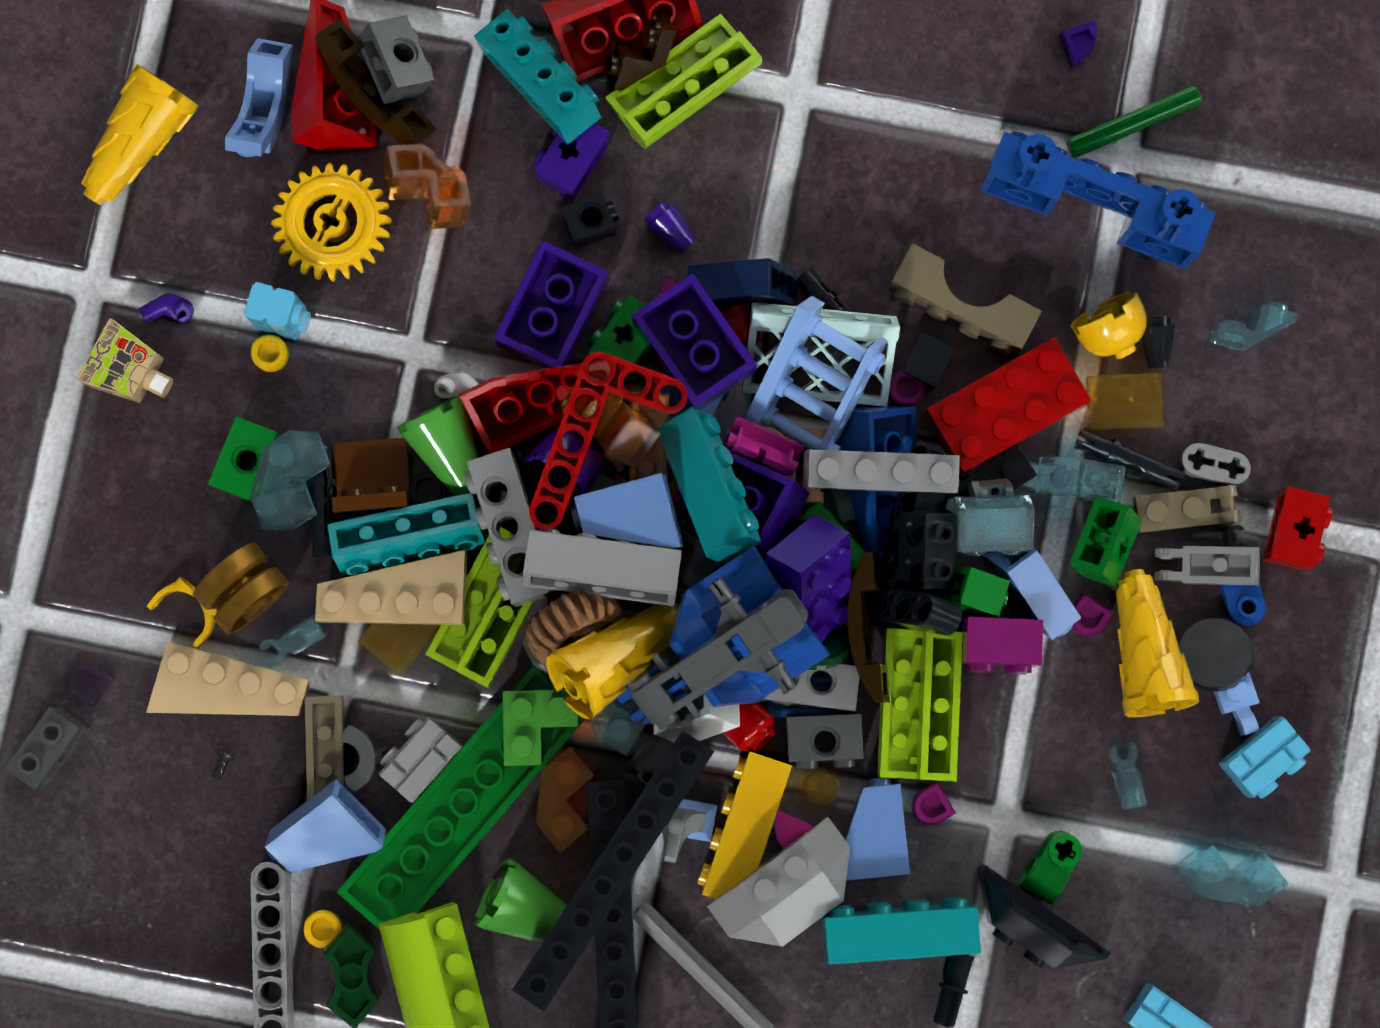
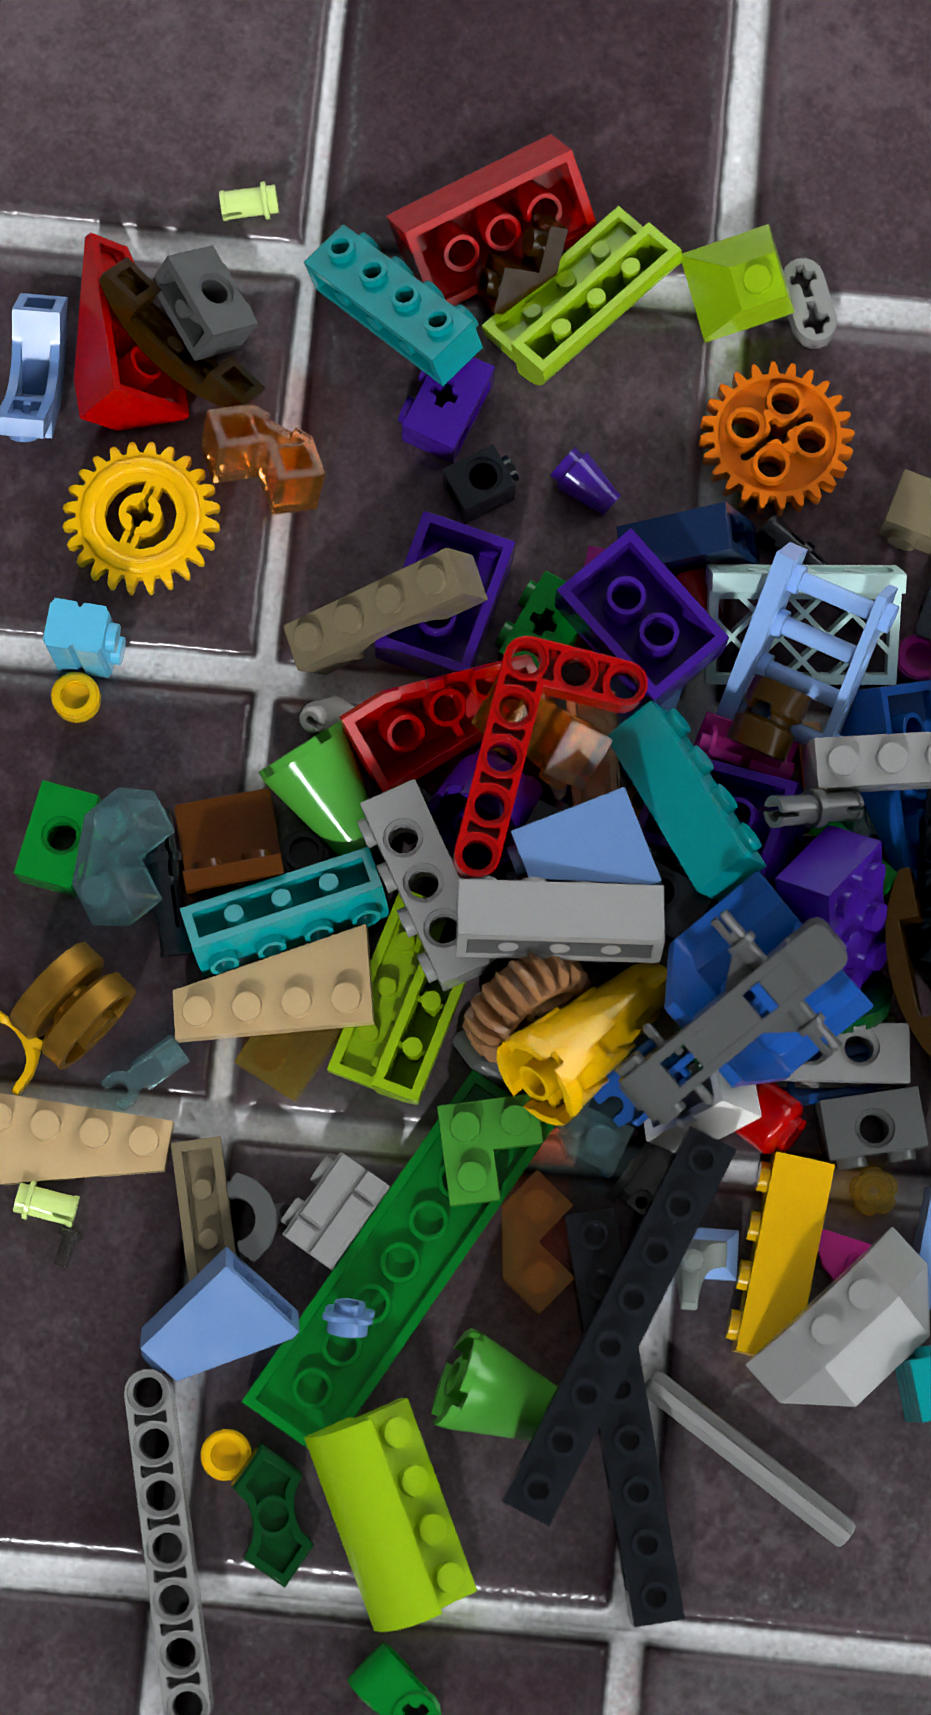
camera: 10 degrees left, 5 degrees down
(209, 731) = (45, 1204): none -> yellowish green pin
(419, 840) = (348, 1318): none -> medium blue plate
(526, 306) = (416, 594): none -> dark tan arch
(780, 427) = (773, 735): none -> dark brown wheel
(803, 179) = (752, 405): none -> orange gear
(803, 502) = (813, 808): none -> dark grey pin
(804, 82) = (737, 283): none -> lime slope
(849, 105) = (817, 300): none -> light grey beam

